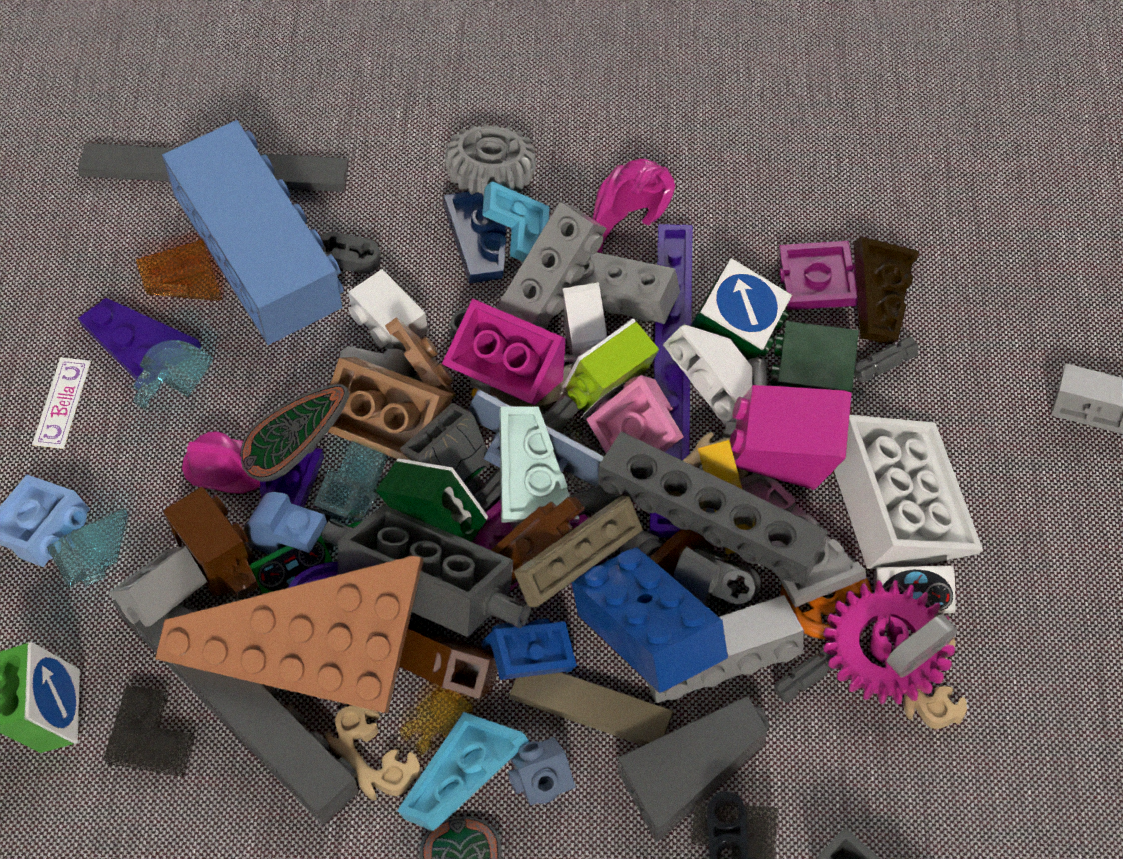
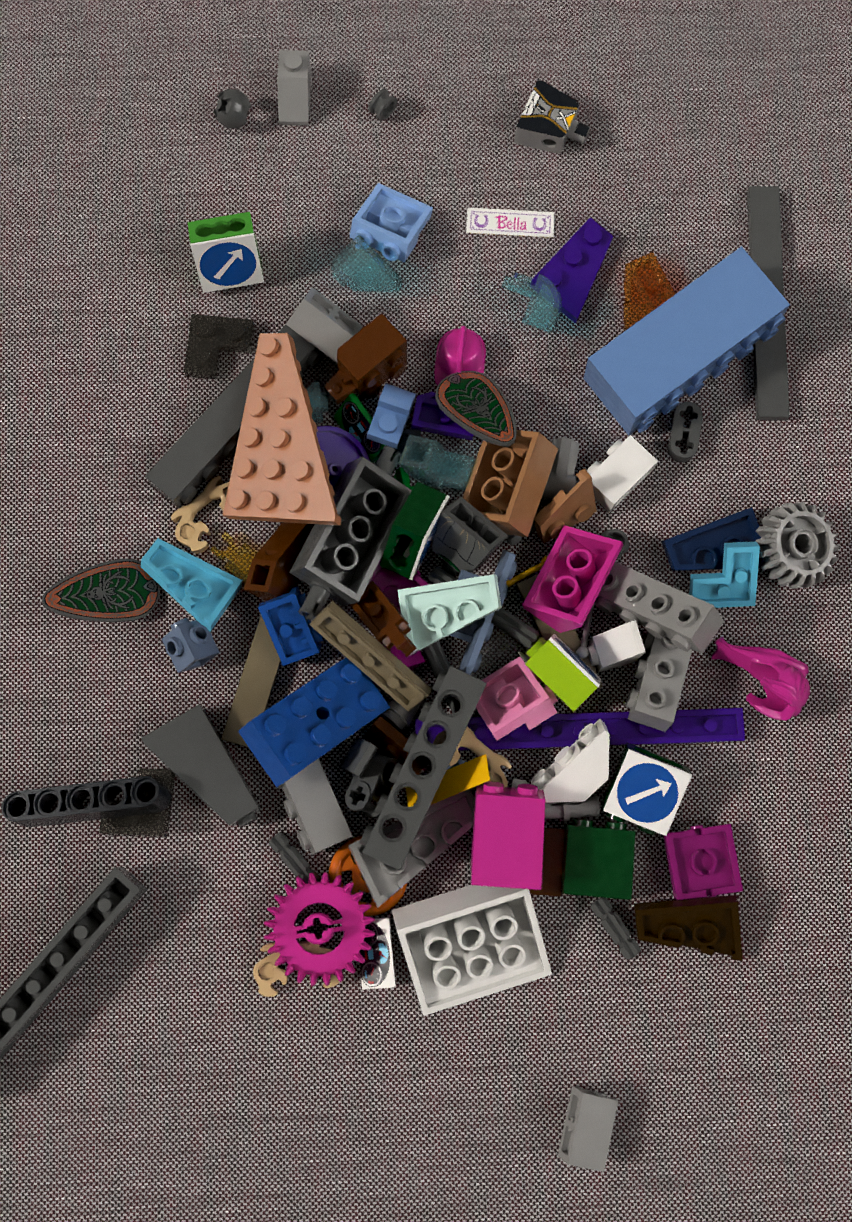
camera: 80 degrees right, 20 degrees up
(921, 645) = (303, 955): light grey beam -> none

